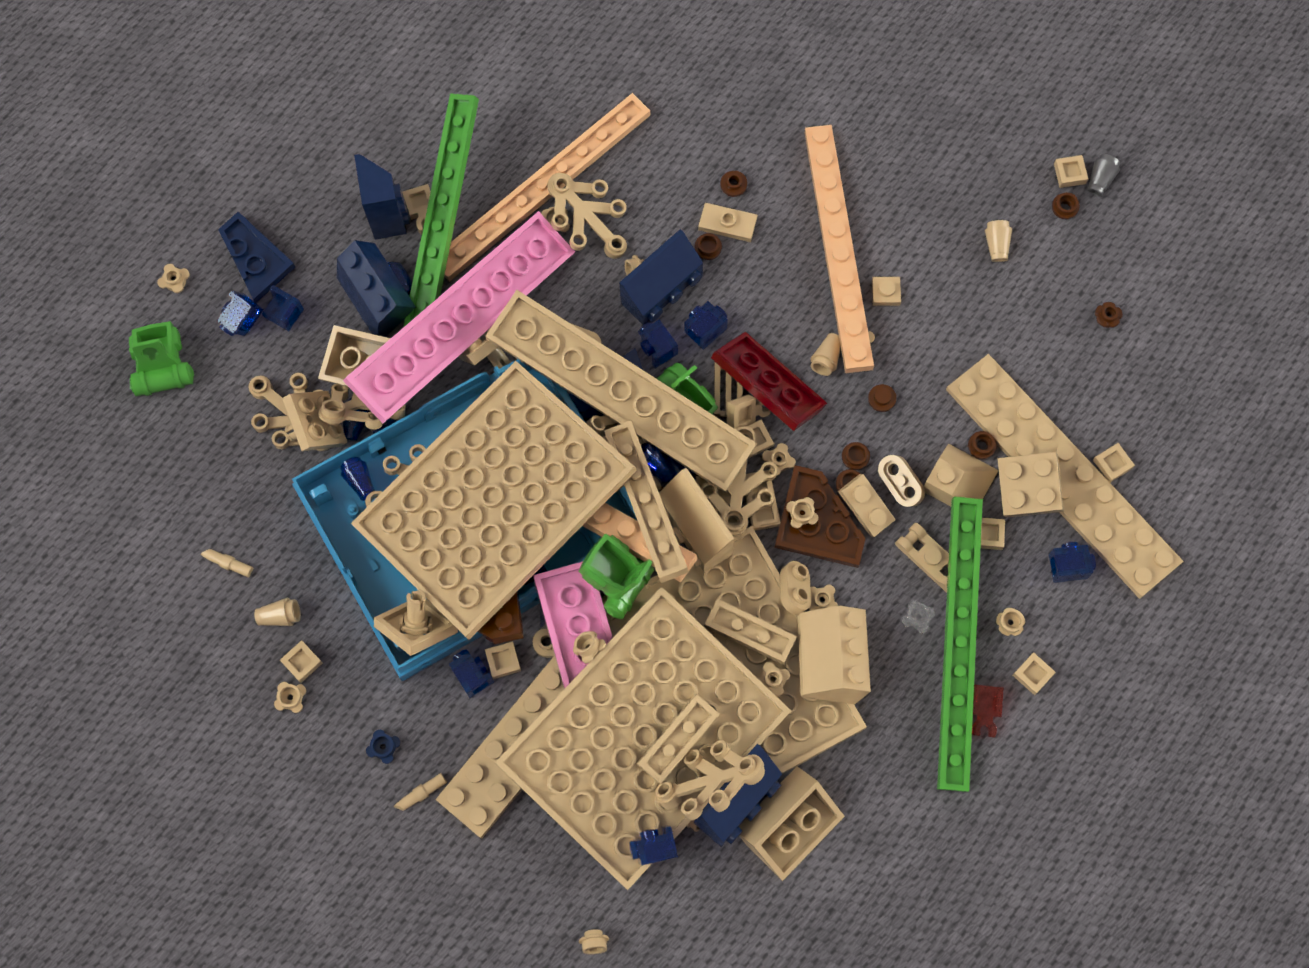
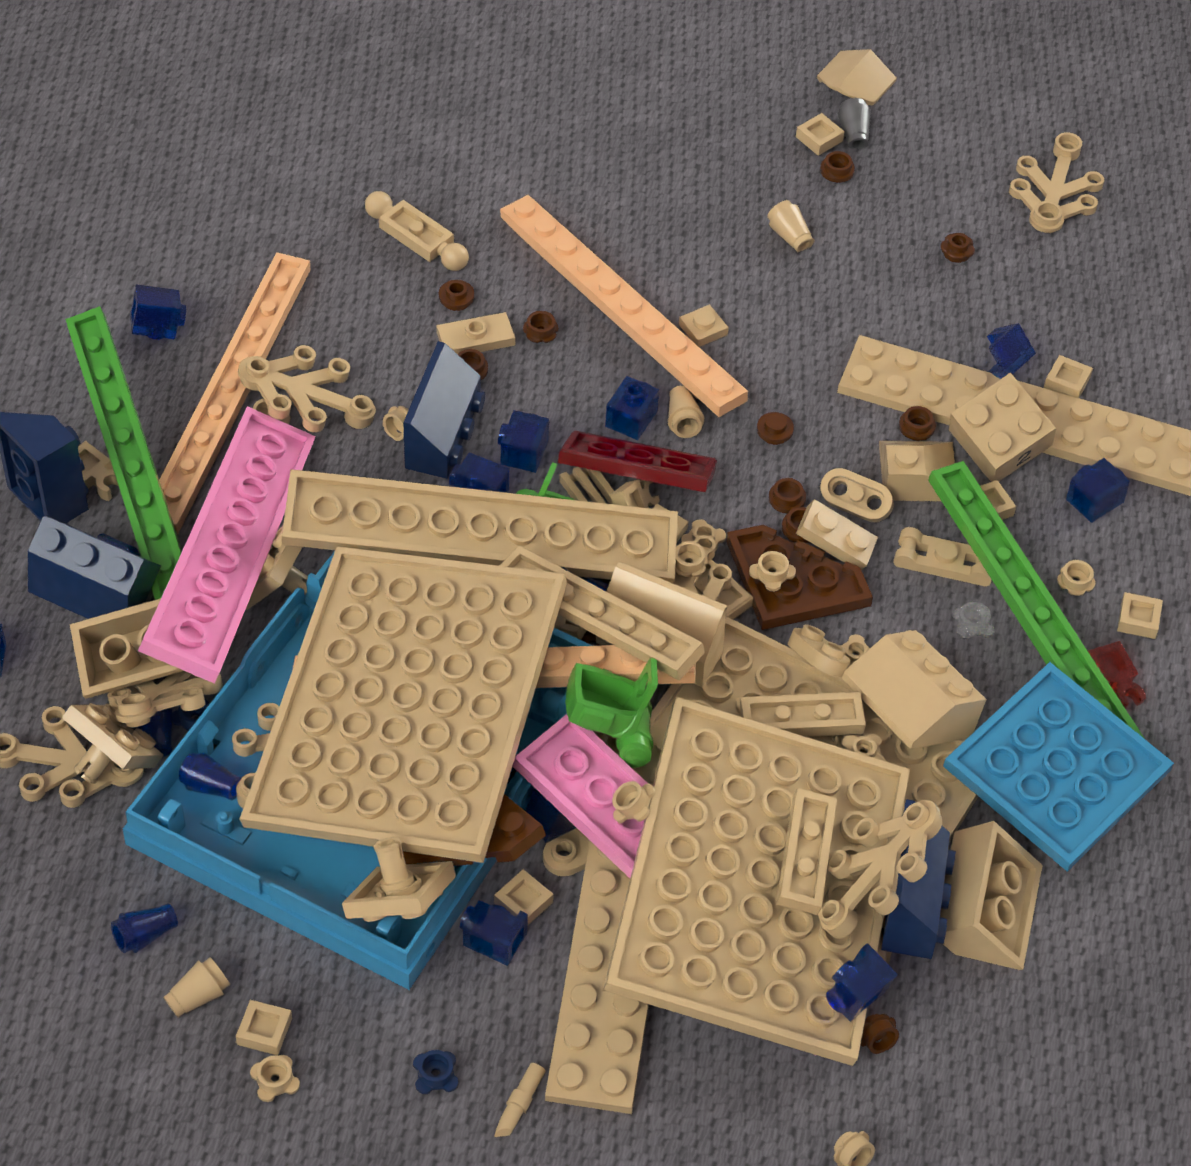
camera: 35 degrees left, 20 degrees down
(228, 562) = (87, 967): tan piece -> none
(270, 555) = (141, 927): none -> clear blue cone
(526, 105) = (156, 312): none -> clear blue brick
(660, 873) = (876, 1028): none -> reddish brown plate
(737, 118) = (416, 231): none -> tan plate
(748, 472) = (690, 552): none -> tan plate
(773, 232) = (541, 320): none -> reddish brown plate
(793, 334) = (632, 407): none -> clear blue brick
(893, 759) = (1058, 766): none -> dark azure plate
(1082, 423) = (1010, 349): none -> clear blue panel
(1132, 133) = (858, 75): none -> tan slope
(1216, 300) = (1048, 215): none -> tan plant

